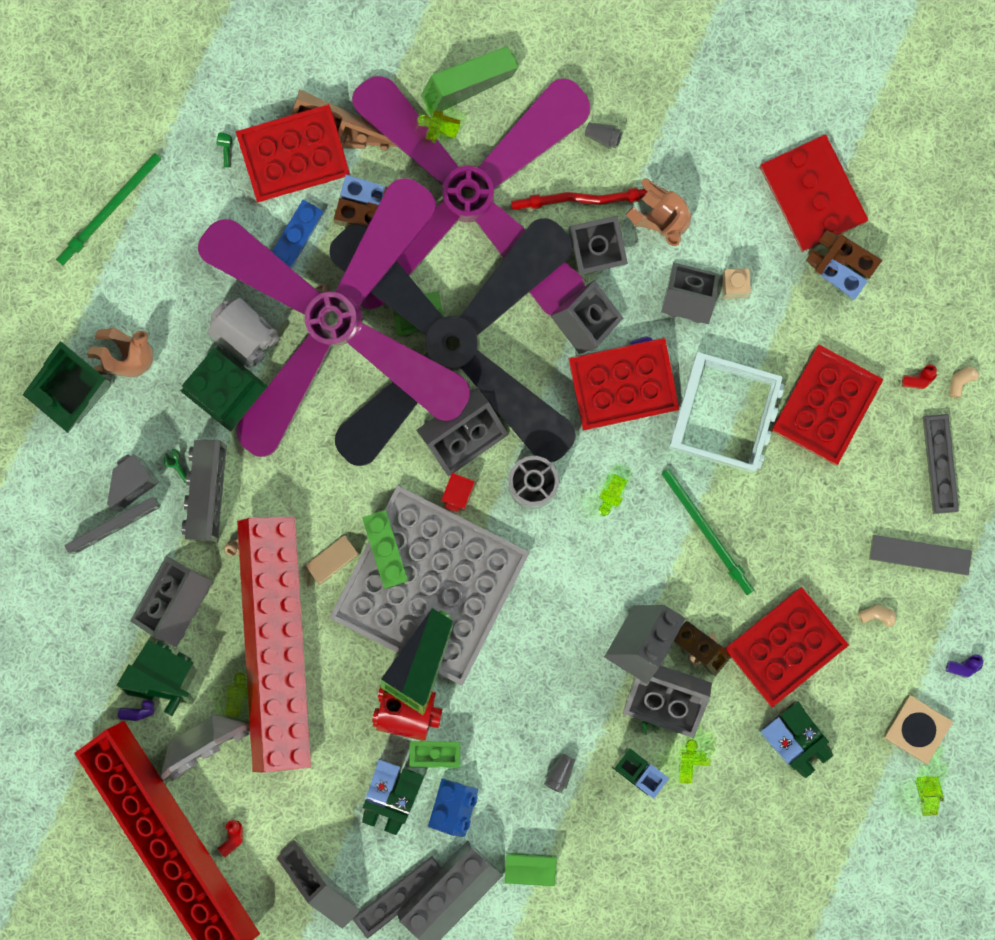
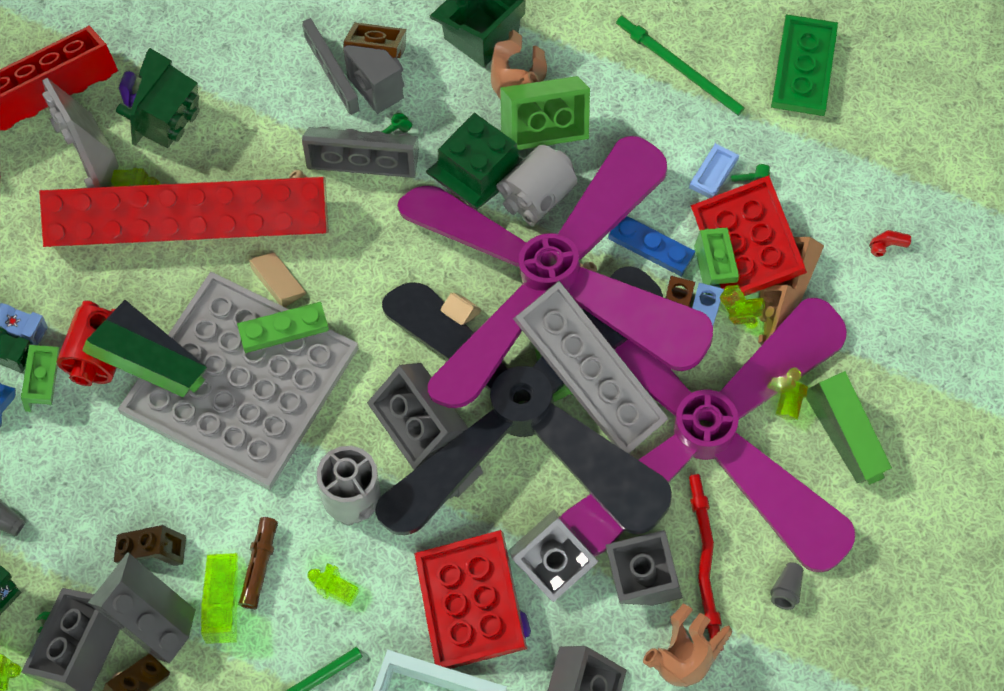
camera: 90 degrees right, 20 degrees down
(90, 483) = (377, 37): none -> reddish brown plate
(110, 97) = (804, 65): none -> green plate
(171, 601) = (242, 120): dark grey slope -> none
(173, 325) = (546, 112): none -> bright green brick
(220, 181) = (714, 171): none -> light blue tile
(289, 37) = (880, 242): none -> red arm
(314, 181) = (716, 257): none -> bright green panel
(361, 160) = (741, 309): none -> clear neon green piece
(362, 399) = (460, 308): none -> tan slope
(426, 285) = (590, 368): none -> light grey plate
(457, 493) = (345, 408): red brick -> none
(583, 647) = (152, 542): none -> dark brown bracket
(594, 556) = (261, 550): none -> reddish brown pin
(624, 584) = (220, 599): none -> clear neon green slope

